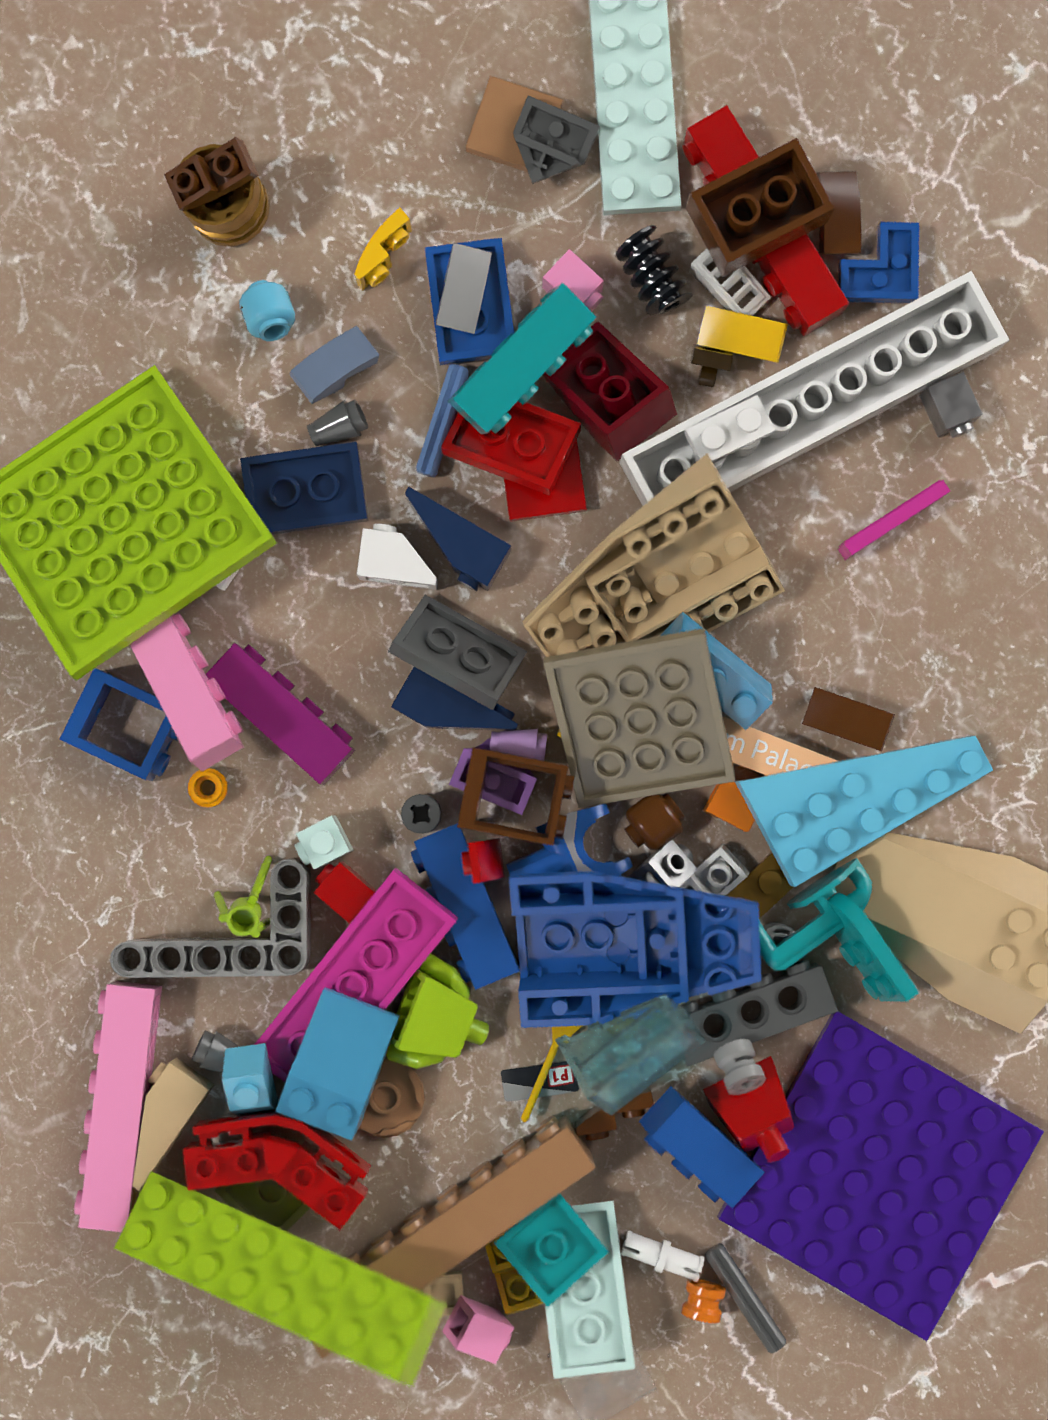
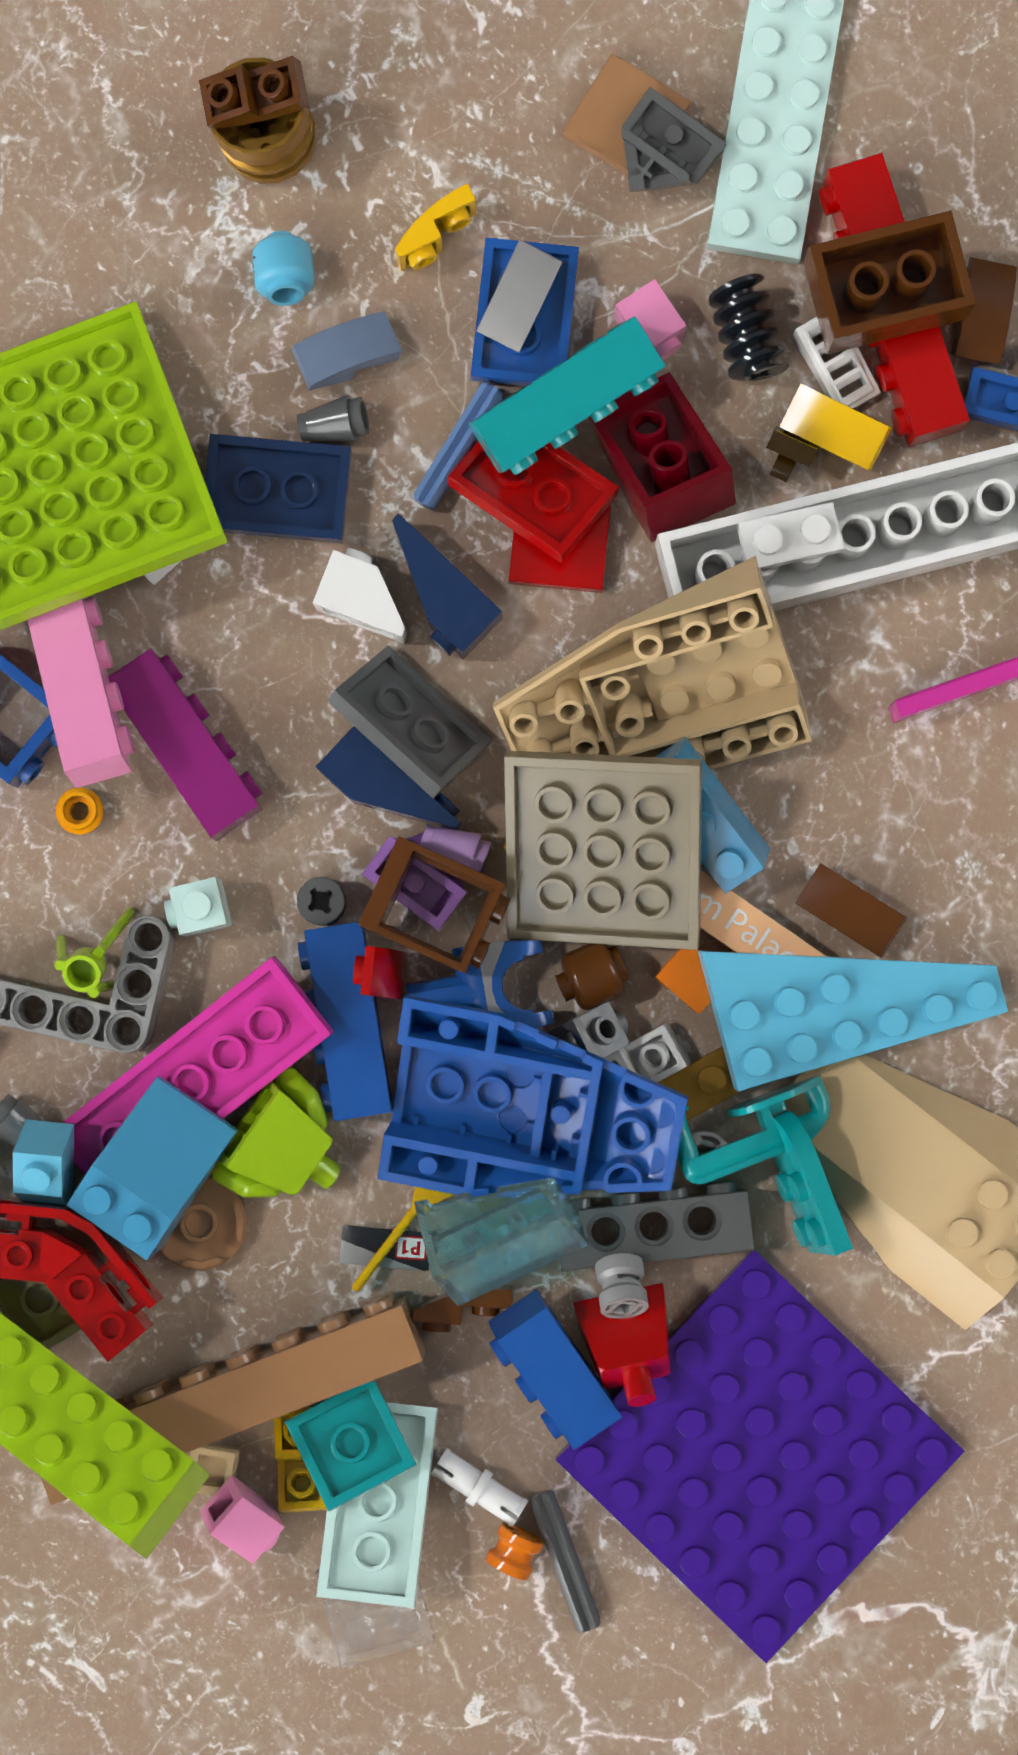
camera: 20 degrees right, 0 degrees up
(343, 890) = (208, 967): red brick -> none

